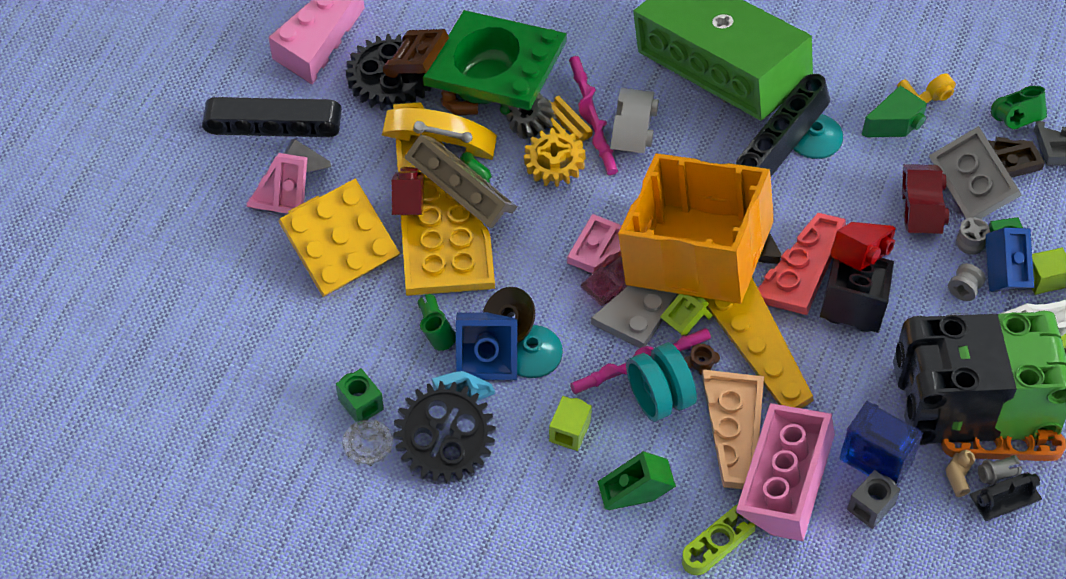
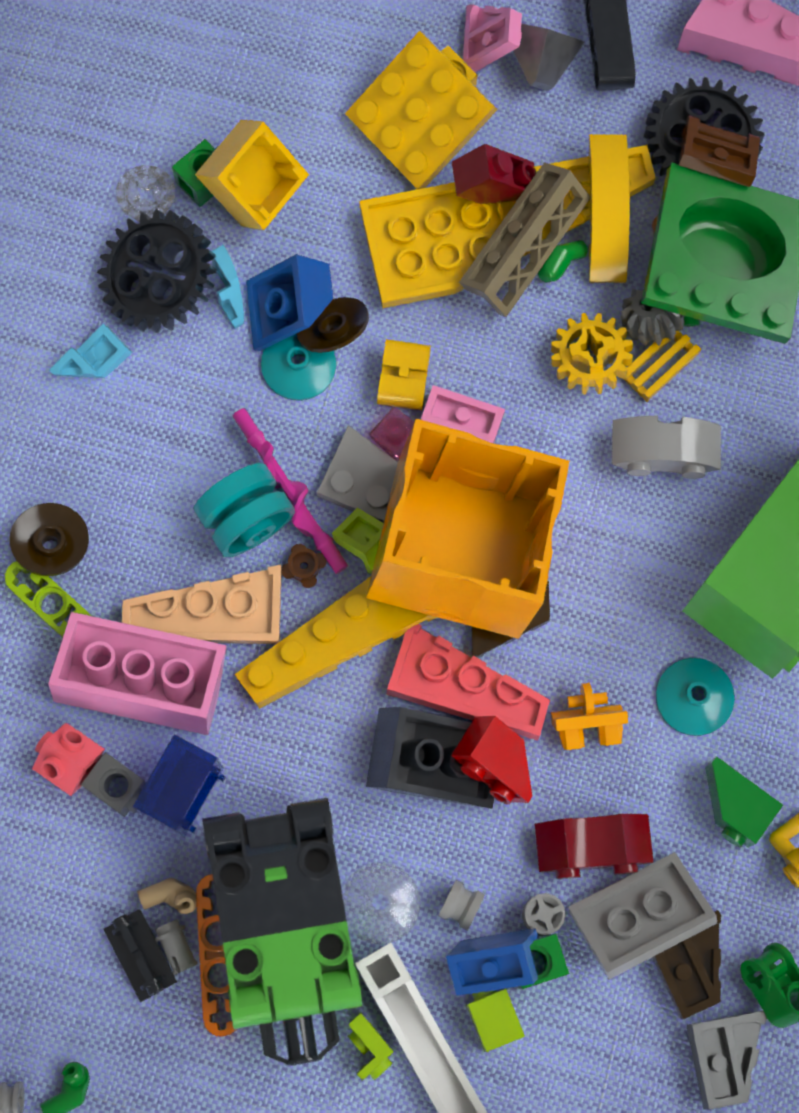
camera: 80 degrees right, 20 degrees up
(375, 350) = (252, 174): none -> yellow container
(419, 127) = (592, 173): light grey hinge -> none
(435, 324) = (313, 241): green pin -> none
(506, 492) = (95, 357): none -> medium azure slope
(555, 276) = (403, 374): none -> yellow piece
(570, 423) = (190, 414): lime brick -> none
(588, 112) = (683, 386): dark pink piece -> none
(637, 481) = (114, 500): green slope -> none
(663, 521) = (44, 524): none -> dark brown dish
(787, 124) = (684, 661): black beam -> none
(829, 191) = (606, 719): none -> light orange hips
(853, 527) = (66, 757): none -> coral brick

